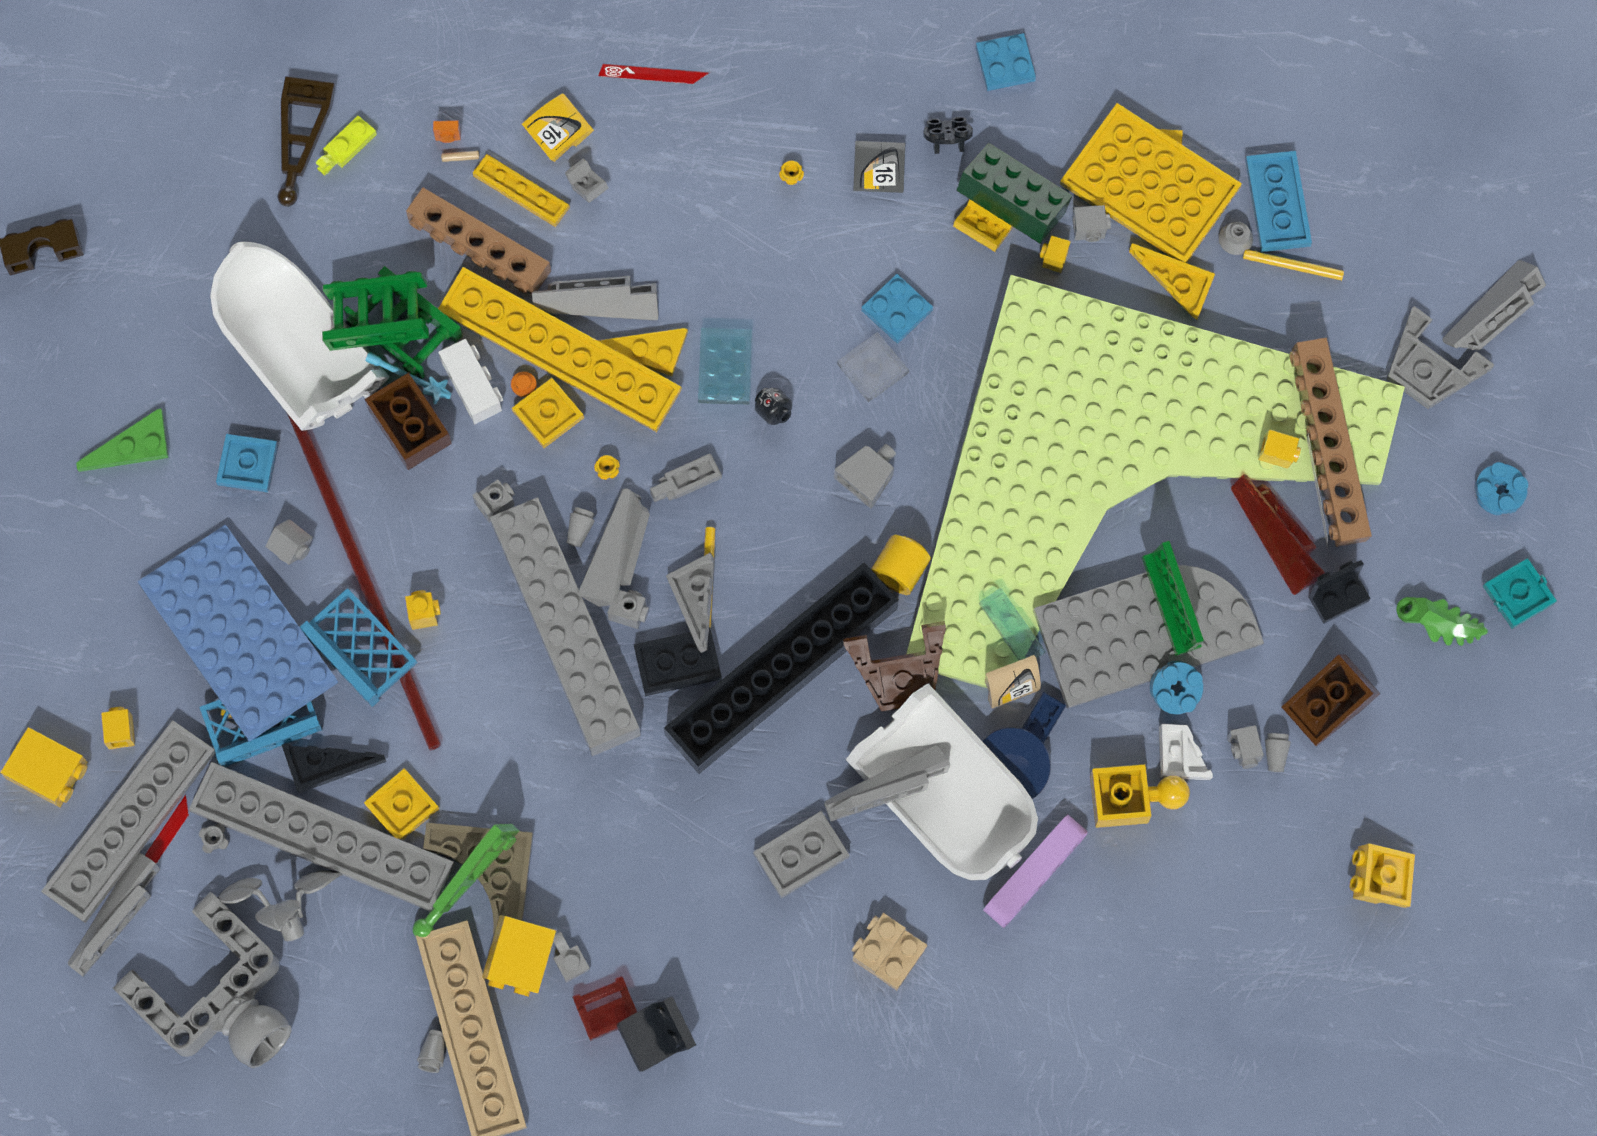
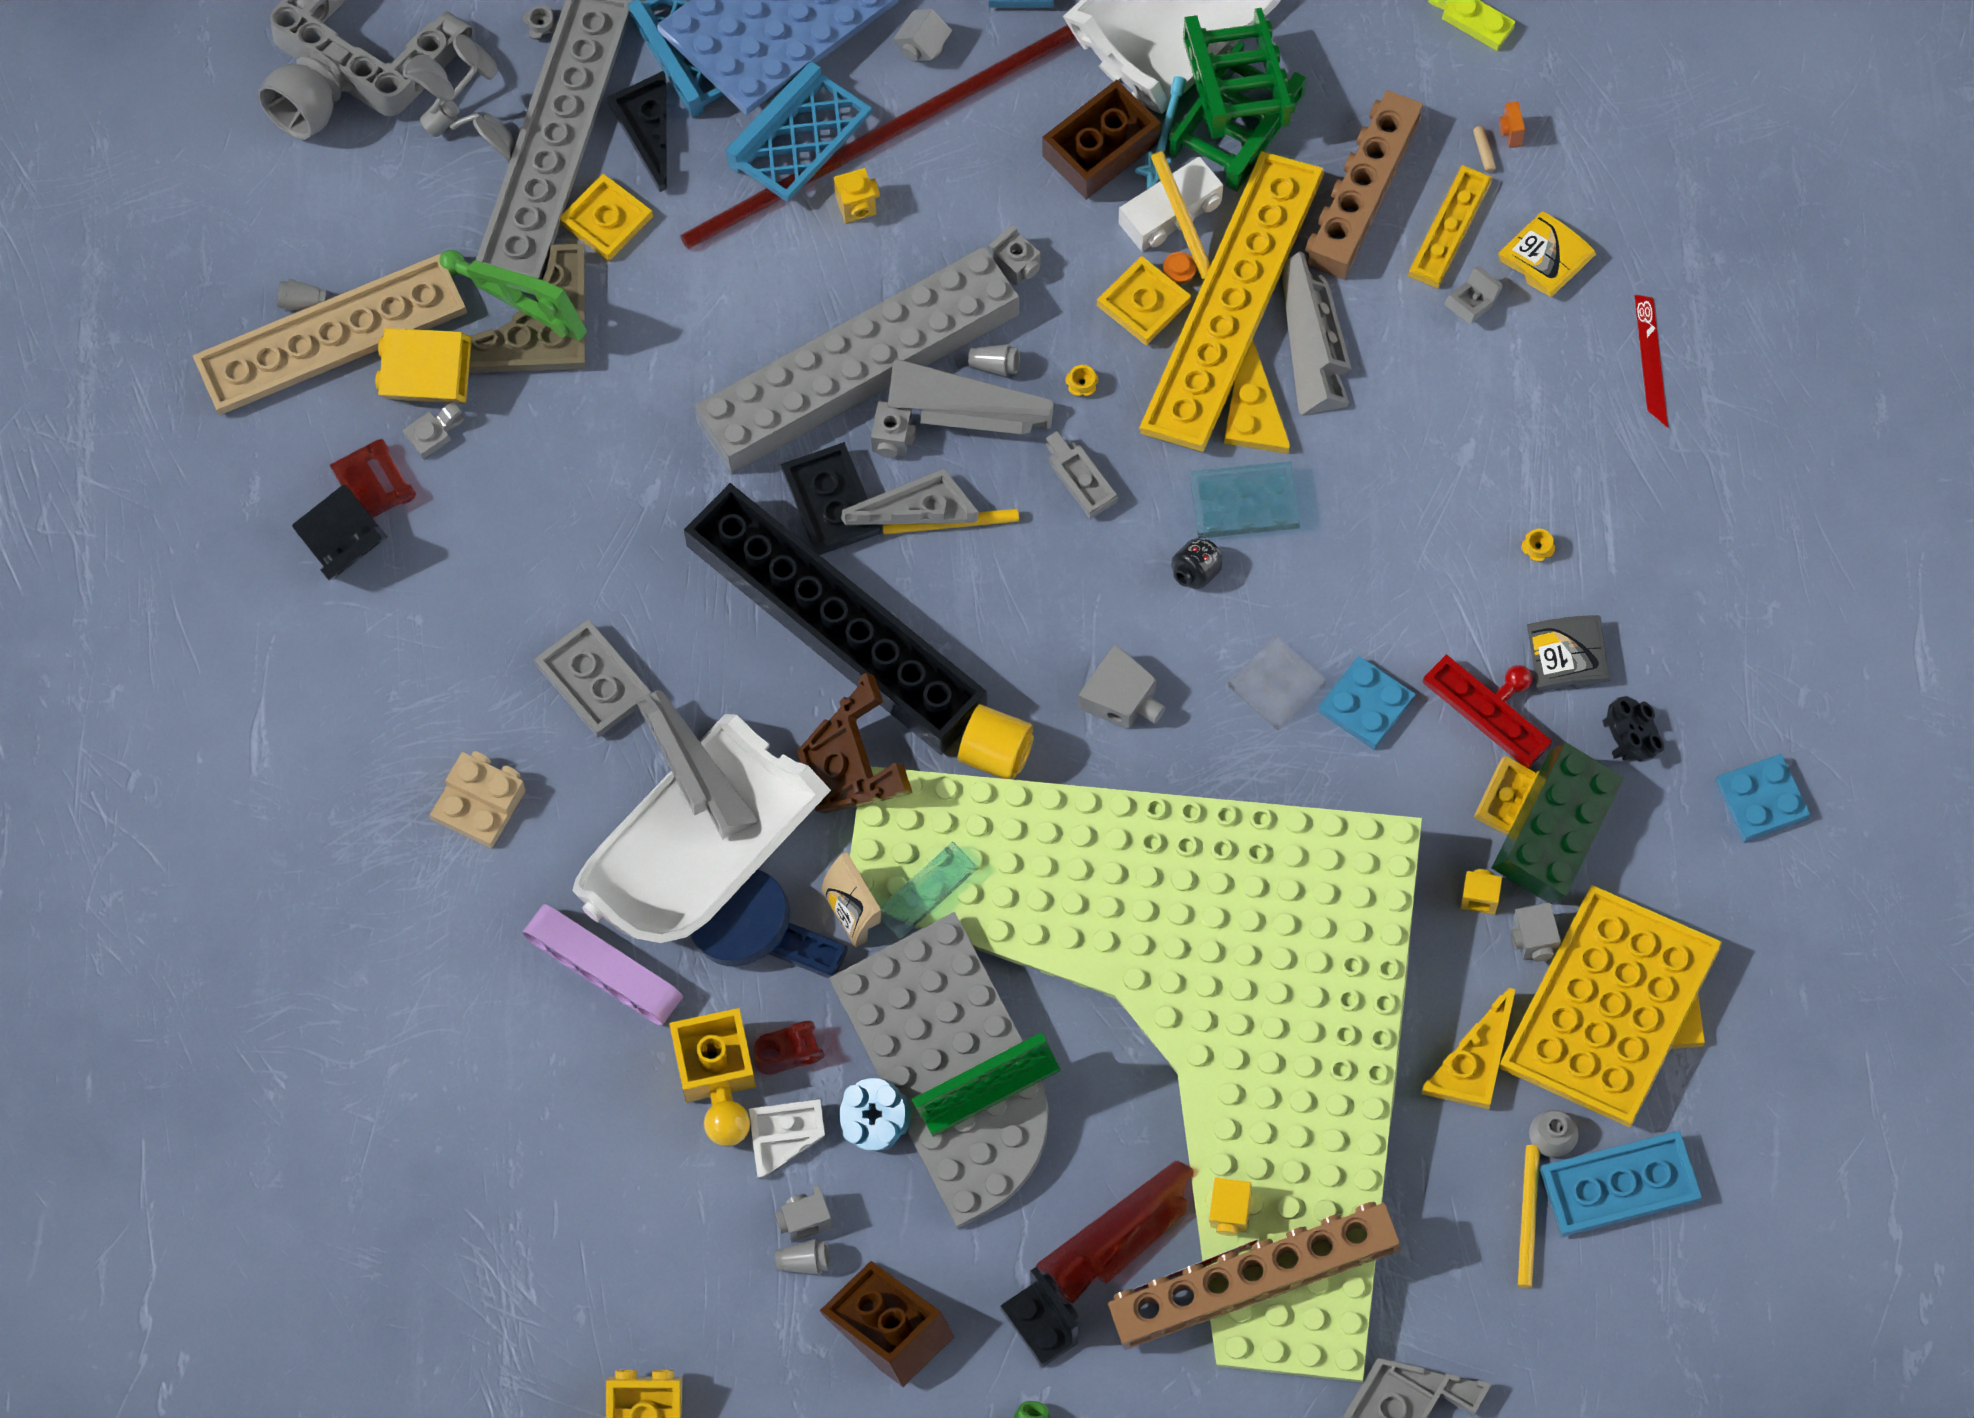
camera: 85 degrees right, 5 degrees down
(486, 370) = (1181, 213): none -> yellow bar
(916, 226) = (1489, 710): none -> red plate
(1117, 740) = (790, 1048): none -> clear red piece

